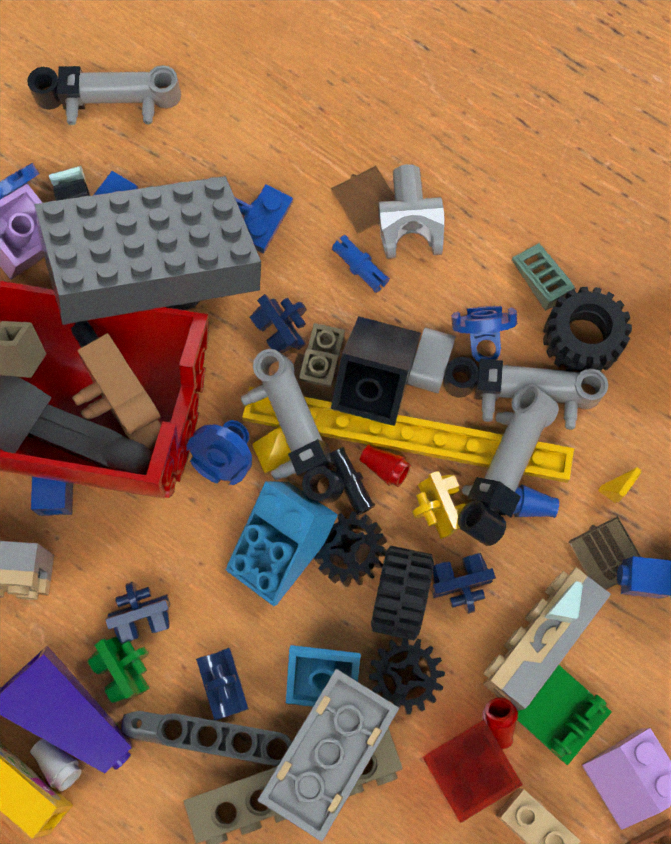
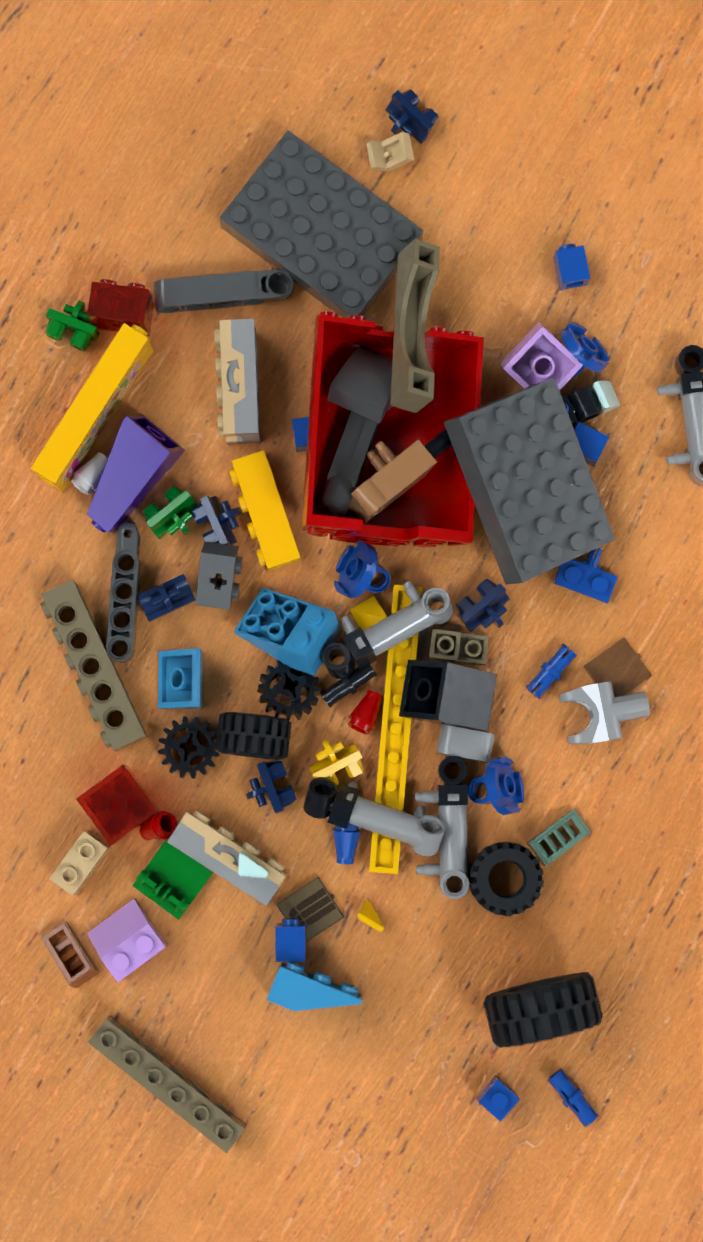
camera: 80 degrees right, 10 degrees up
(134, 554) = (265, 510): none -> yellow brick
(185, 618) = (217, 560): none -> dark grey brick
(328, 755) = (116, 688): light grey piece -> none

